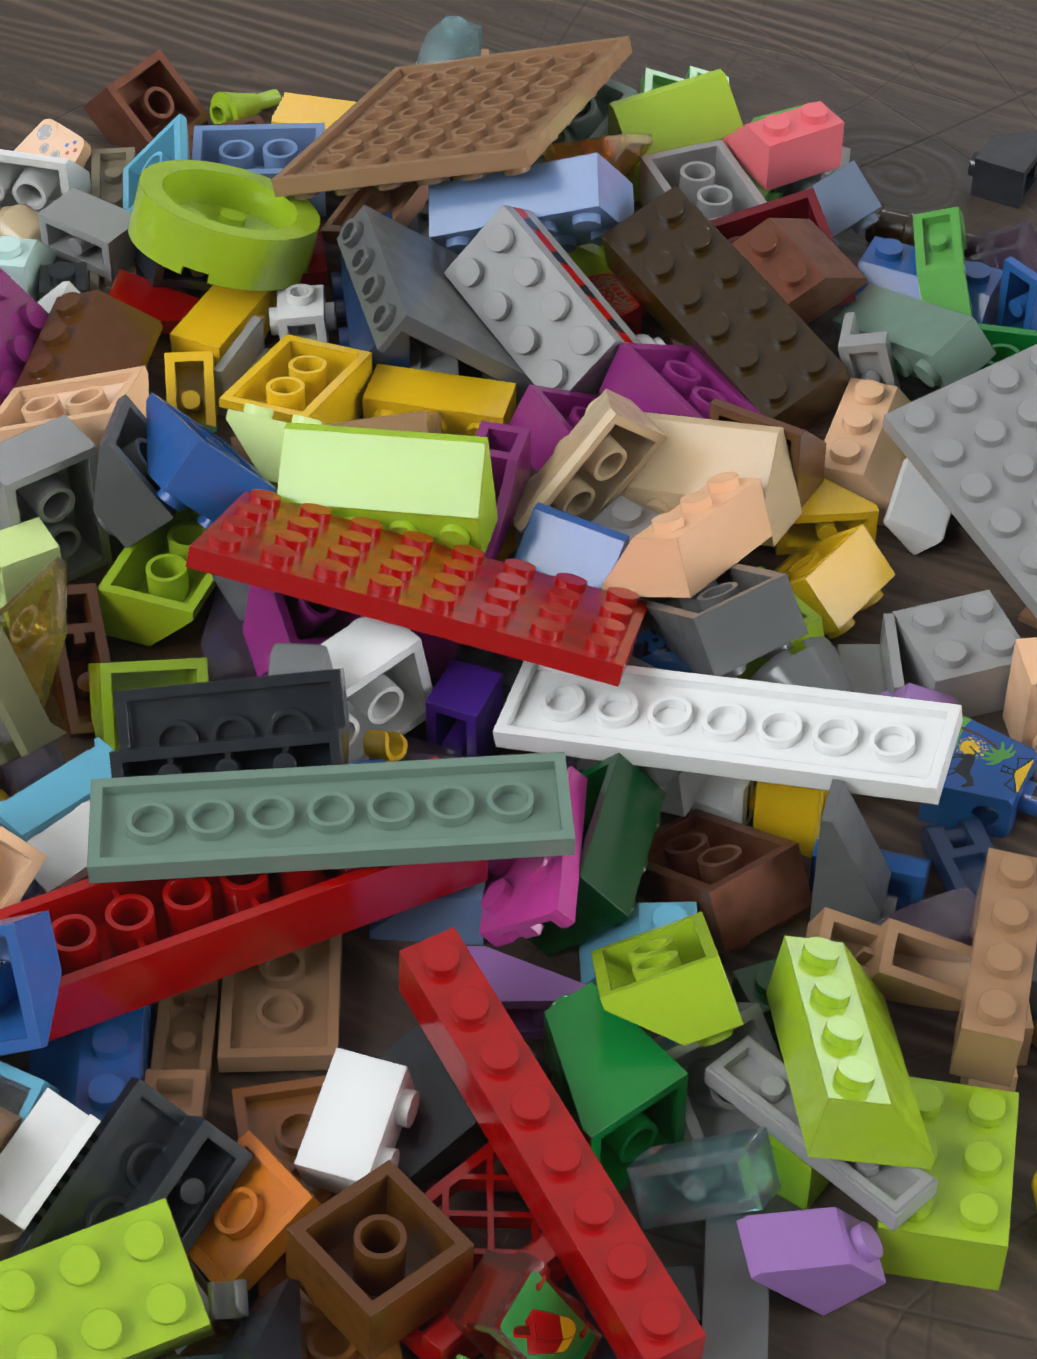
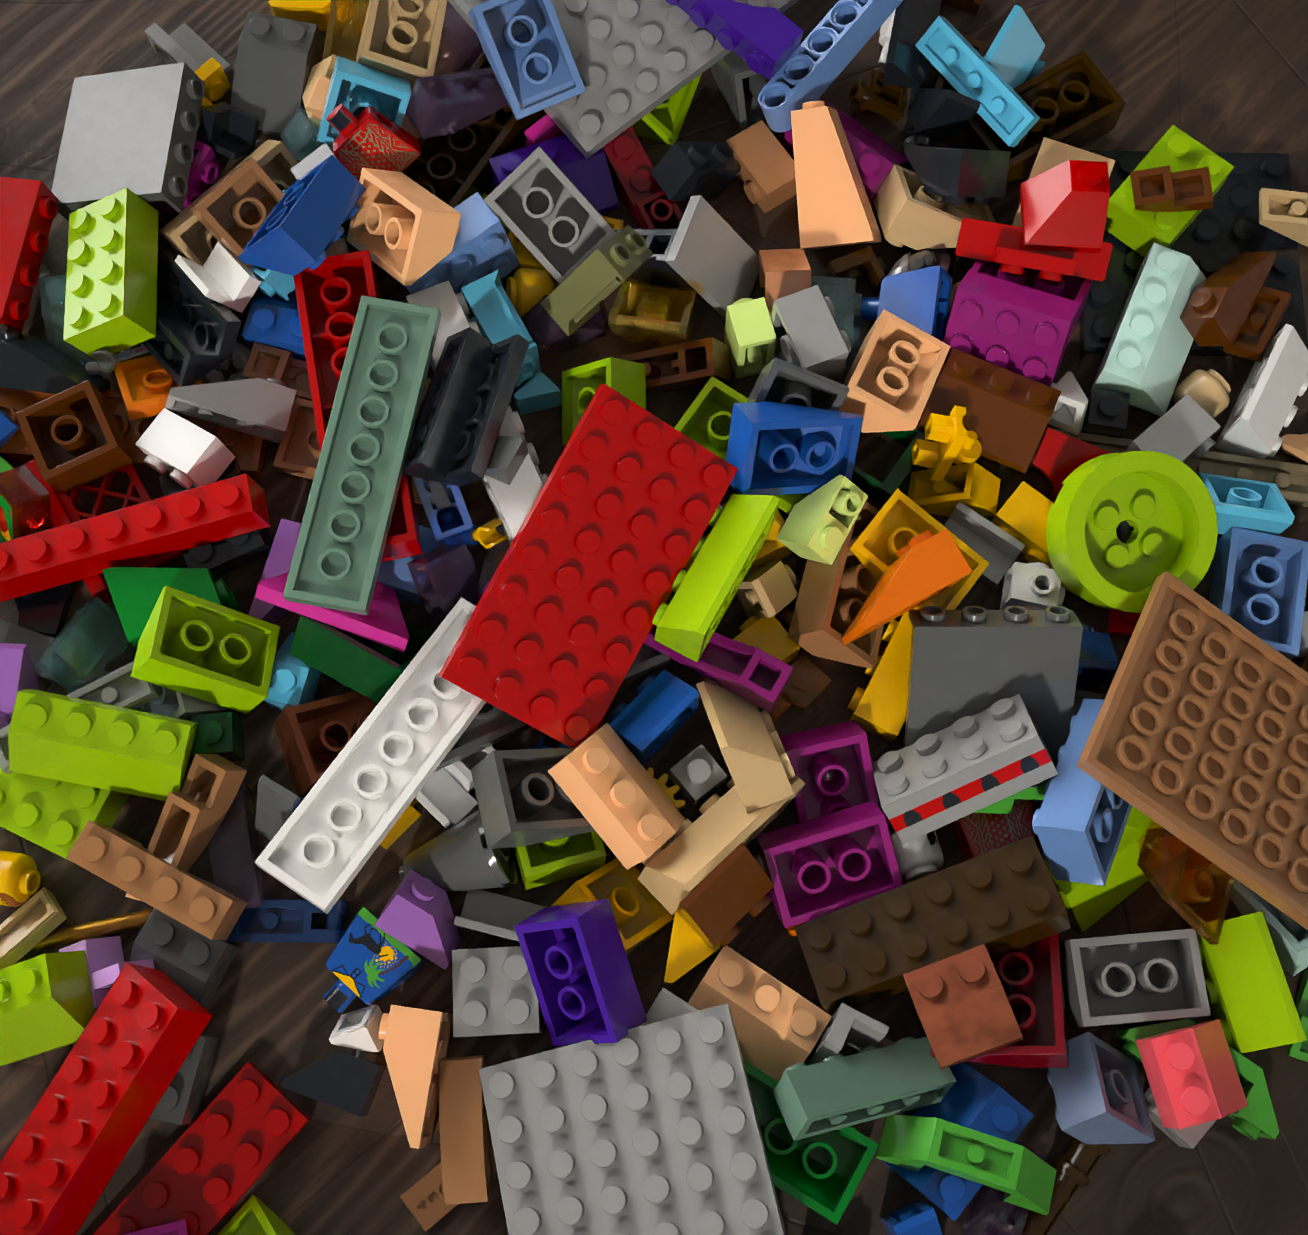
camera: 105 degrees right, 30 degrees up
(147, 350) = (950, 444): none -> yellow hips
(258, 1076) = (244, 405): none -> light grey slope
(359, 343) = (919, 574): none -> orange slope
(905, 554) = (580, 973): none -> dark purple brick

